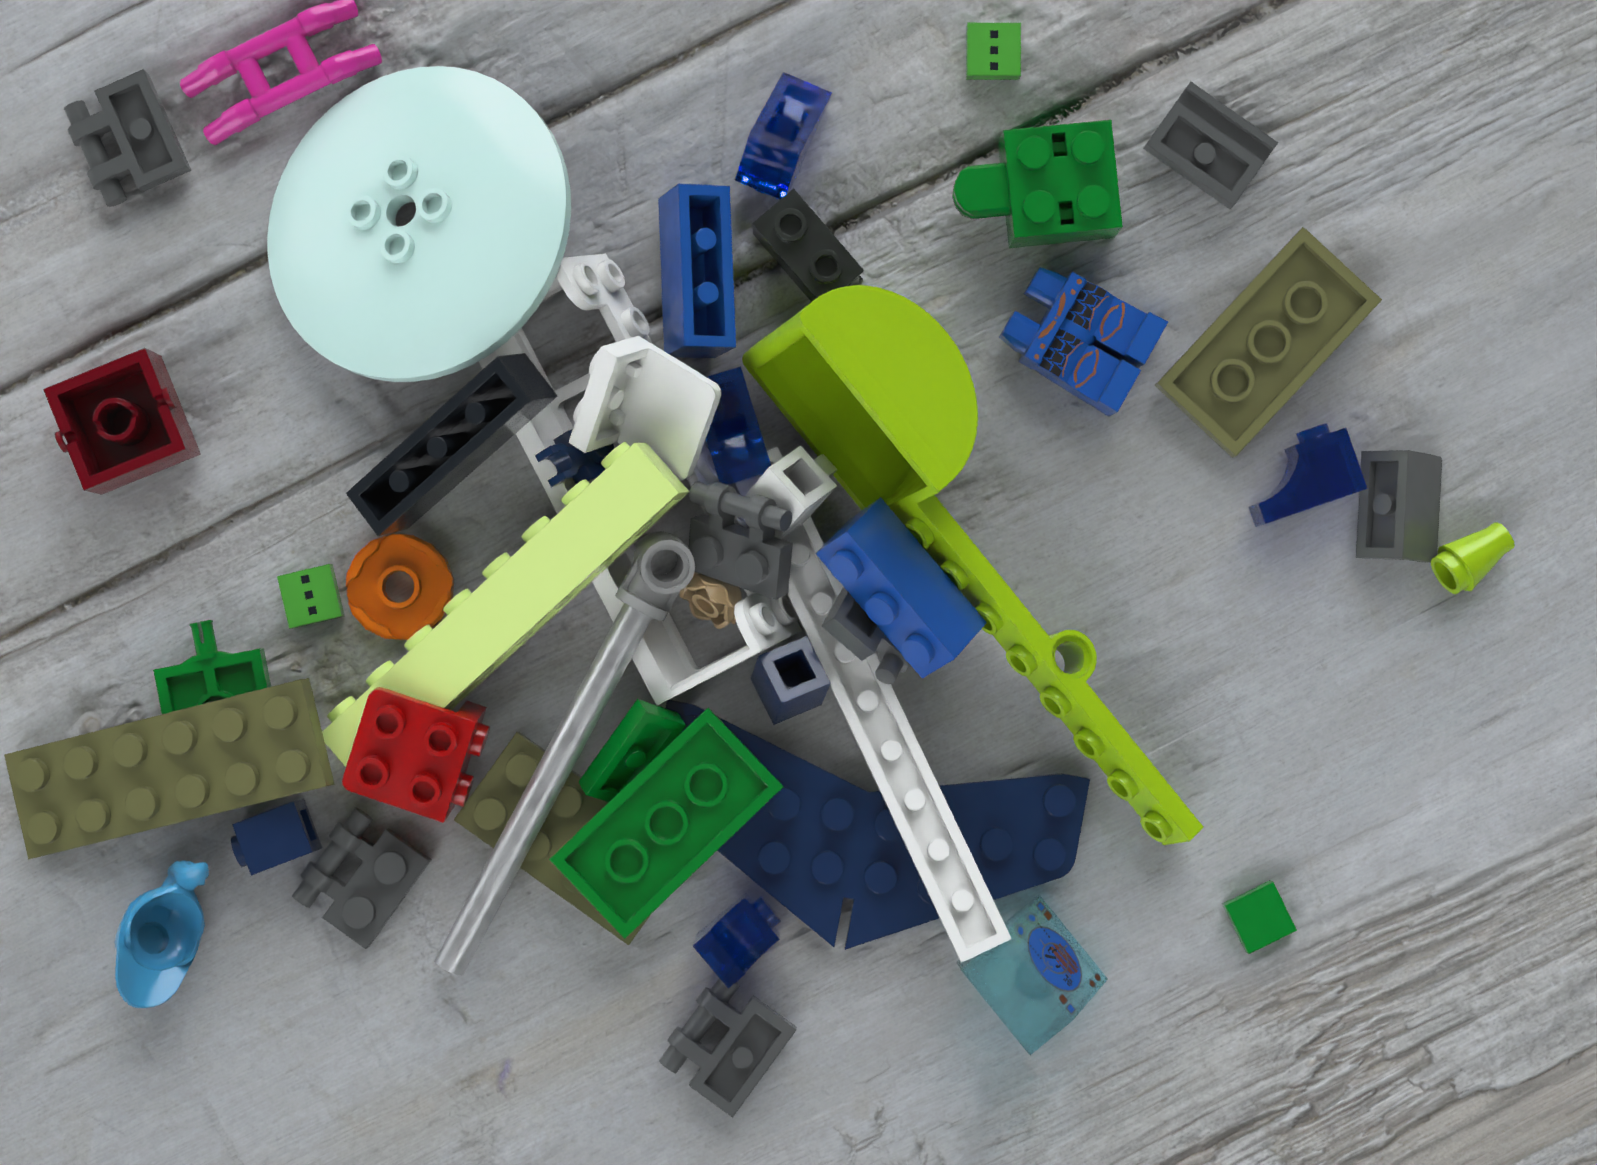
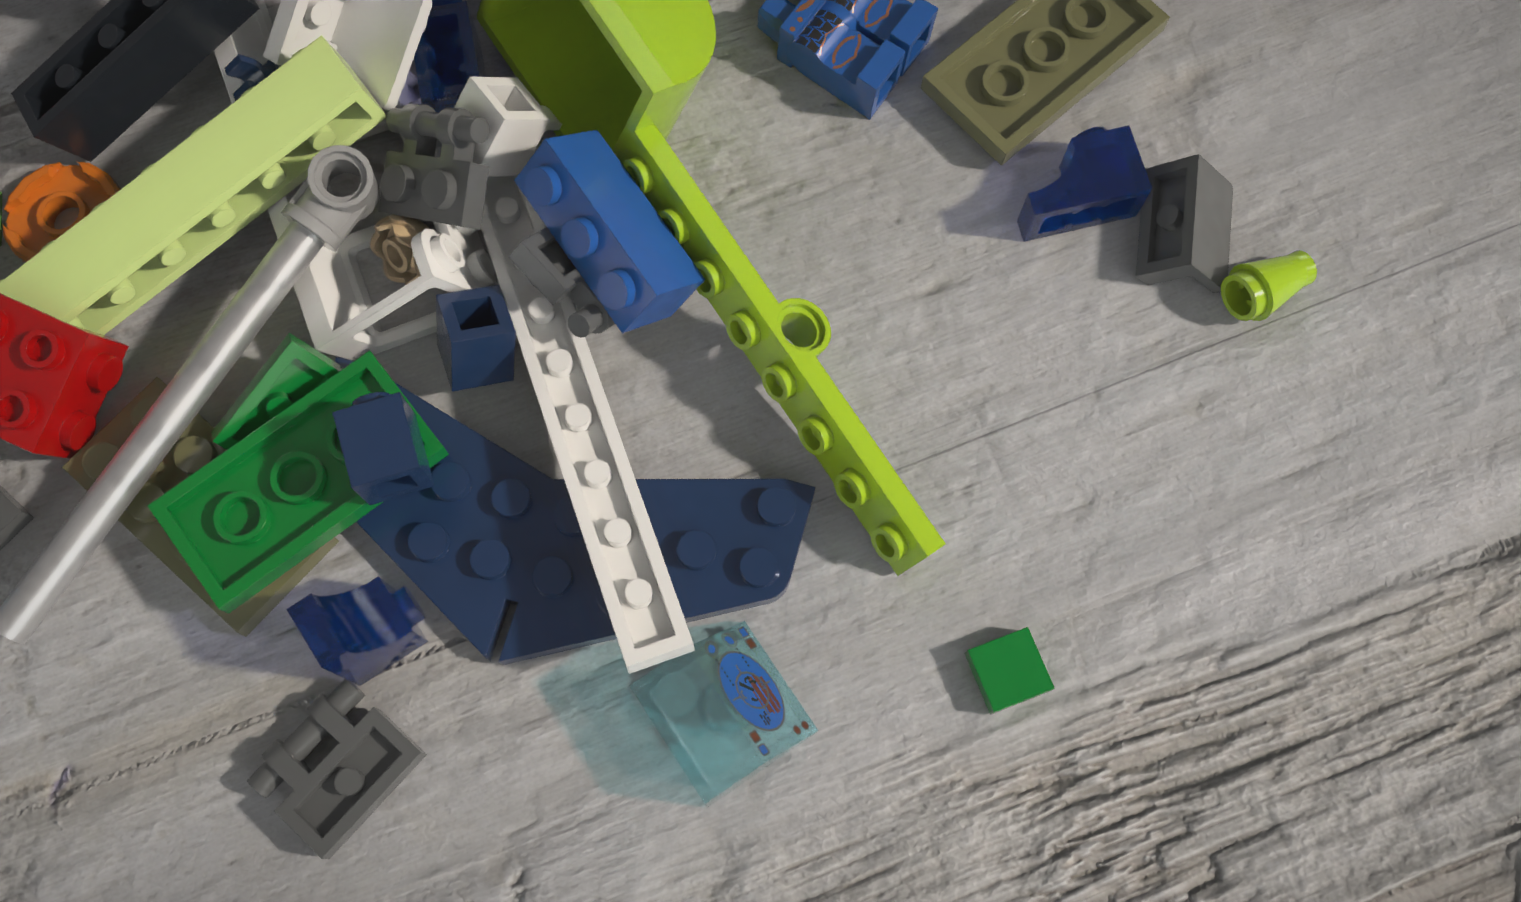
camera: 10 degrees right, 15 degrees down
(741, 800) = (382, 447): none -> dark blue brick

